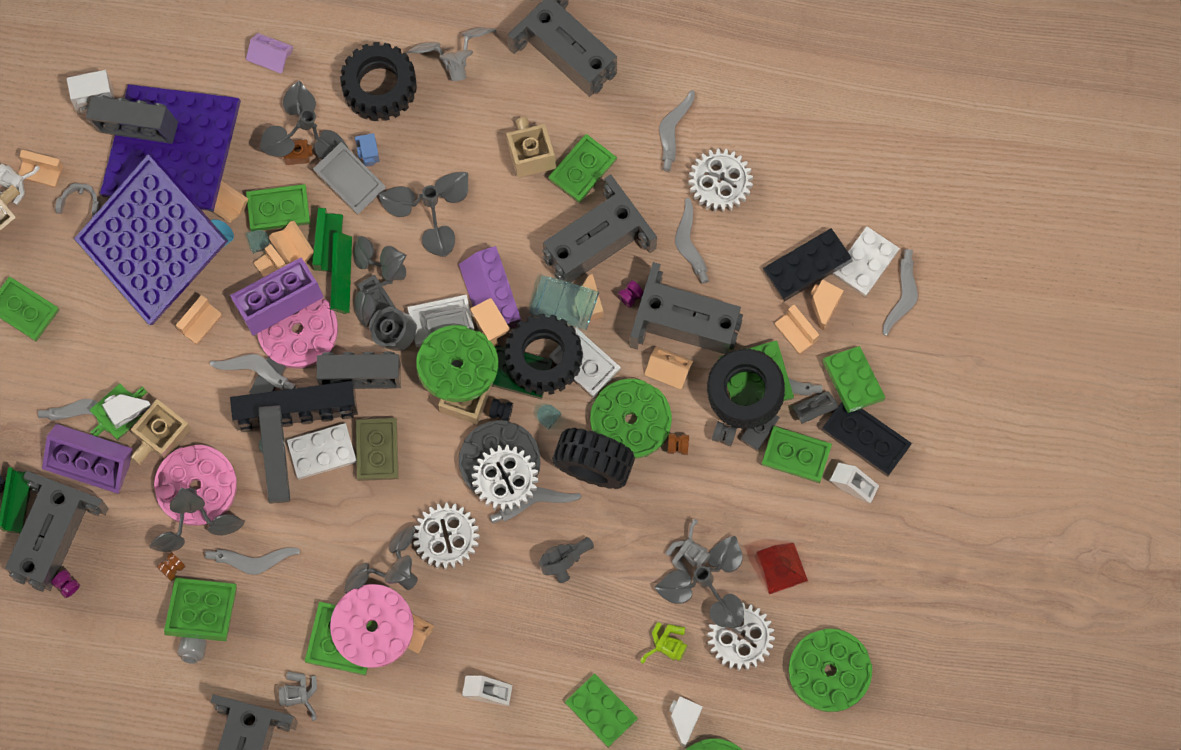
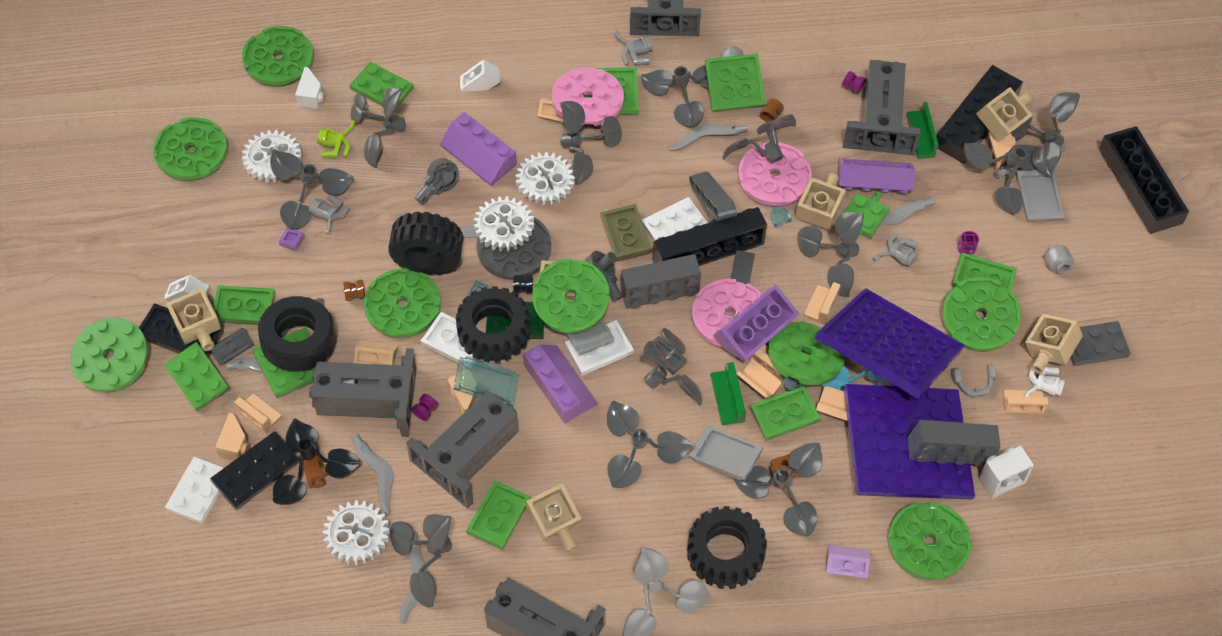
camera: 165 degrees right, 15 degrees down
(26, 352) = (968, 243): none -> magenta wheel
(50, 282) = (986, 295): none -> bright green plate
(94, 354) = (903, 254): none -> light grey piece
(124, 409) = (859, 201): white slope -> none
(151, 366) = (849, 227): none -> dark grey plant
(185, 71) = (929, 561): none -> bright green plate
(207, 433) = (780, 216): none -> clear light blue tile
(256, 255) = (787, 355): none -> bright green plate
(259, 365) = (754, 275): light grey piece -> none
(285, 640) = (659, 82): none -> dark grey plant
(341, 273) = (705, 367): green tile -> none
(367, 149) = (717, 484): medium blue brick -> none
(392, 329) = (640, 322): dark grey brick -> none
(414, 401) = (605, 265): none -> dark grey pin
(489, 320) = (551, 344): light nougat panel -> none
(510, 591) = (478, 149): none -> medium lavender slope
(596, 646) = (391, 121): none -> dark grey plant
(644, 129) = (436, 530): none -> dark grey plant
(724, 251) = (301, 439): none -> black plant
(734, 527) = (291, 239): none -> medium lavender tile
(750, 250) = (314, 472): none -> dark orange brick
(780, 567) = (245, 217): clear red slope -> none
(848, 432) = (194, 318): none -> tan brick
(909, 292) = (151, 471): light grey piece -> none
(929, 442) = (122, 368): none -> bright green plate

